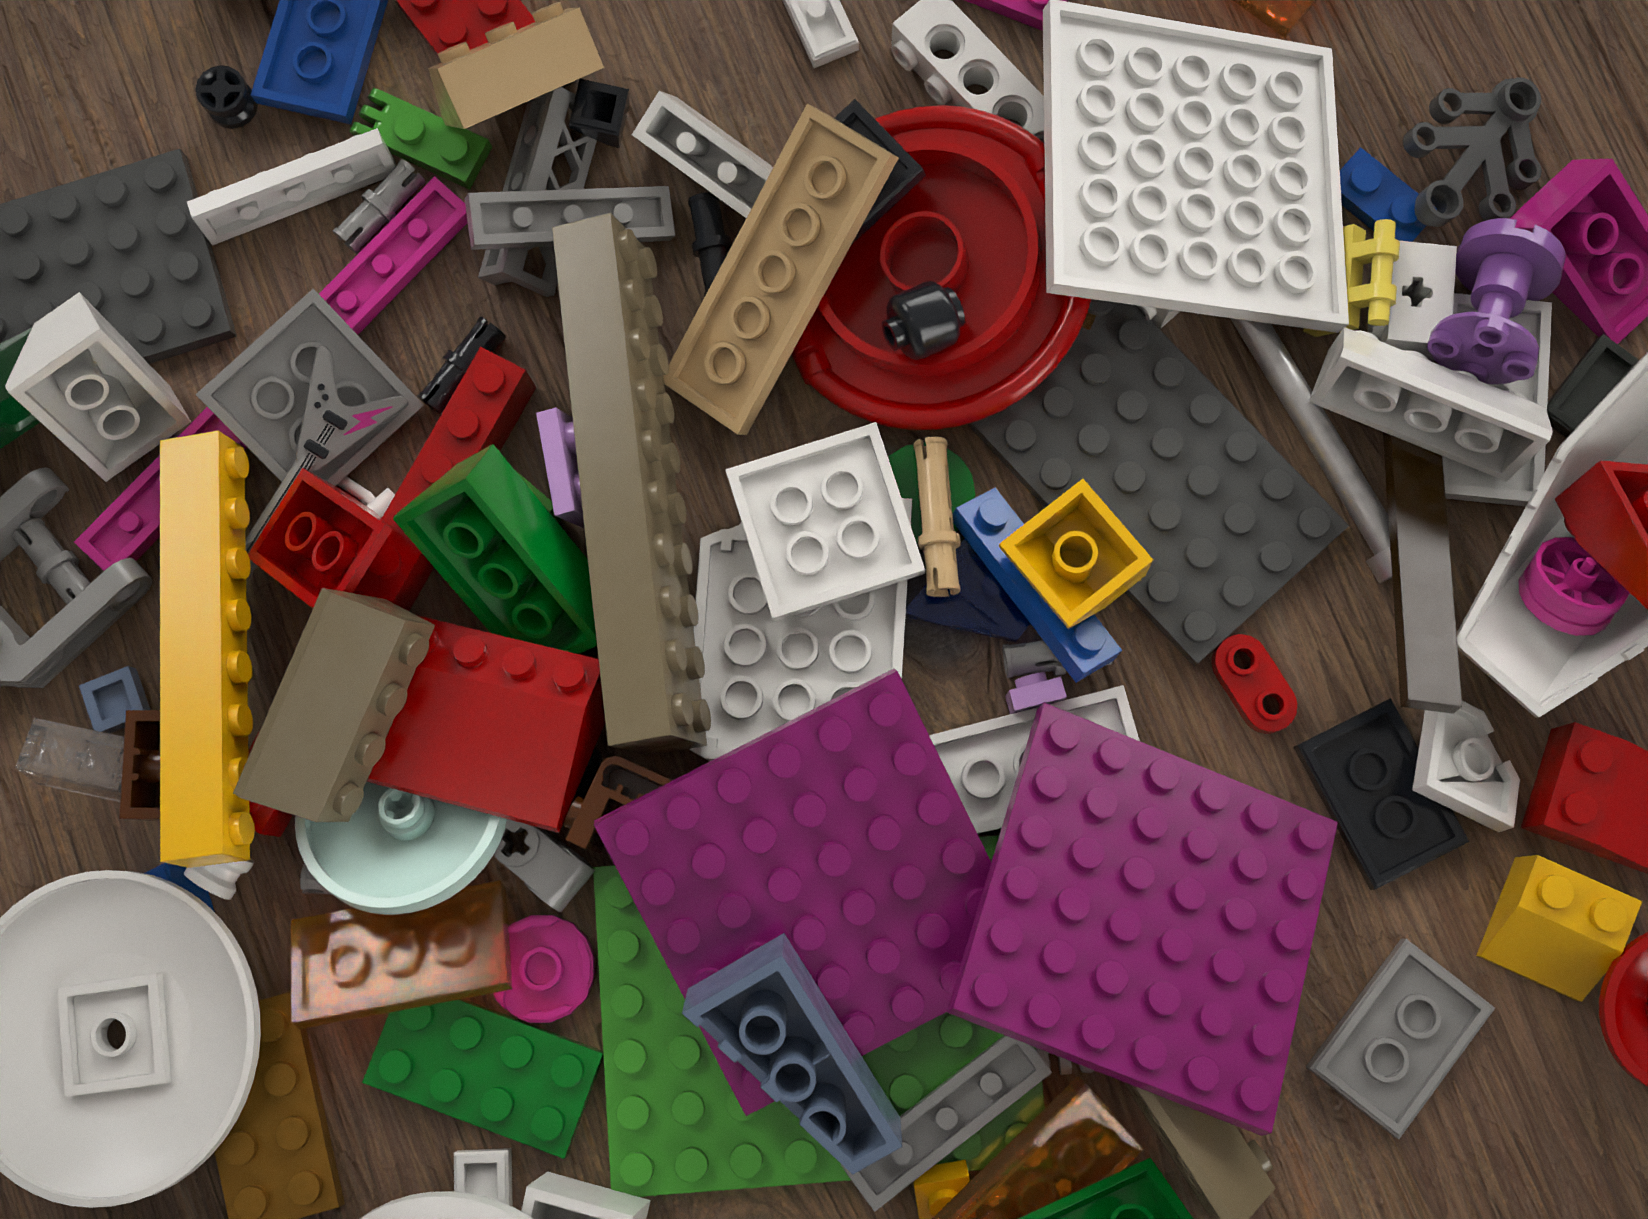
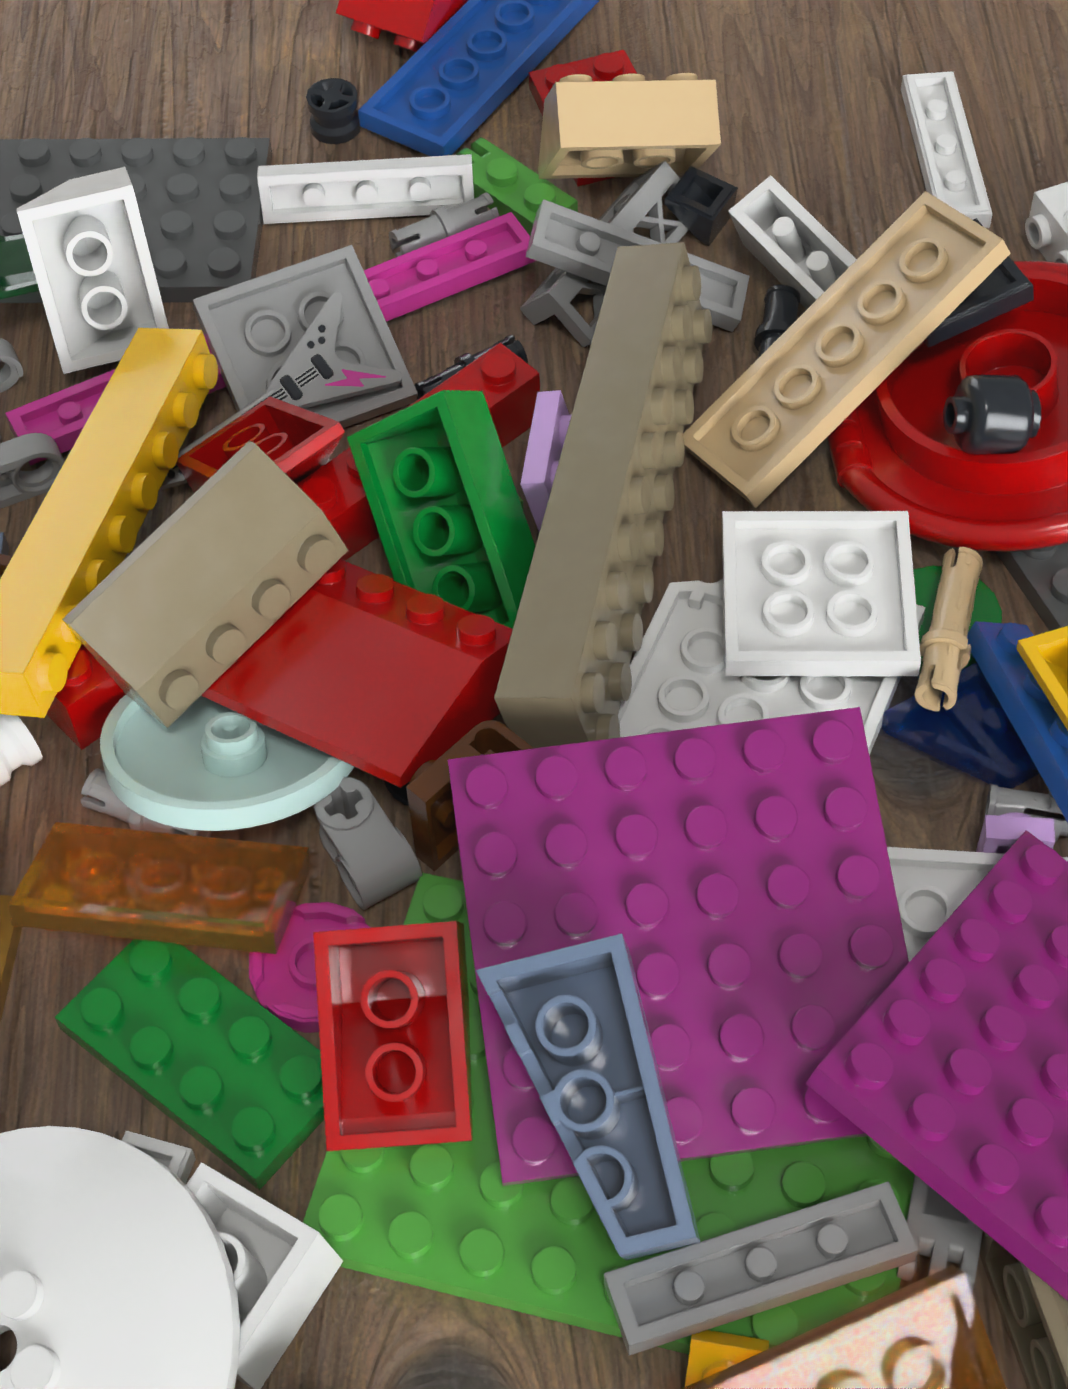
camera: 15 degrees right, 25 degrees down
(625, 1025) = (394, 1035): none -> red slope

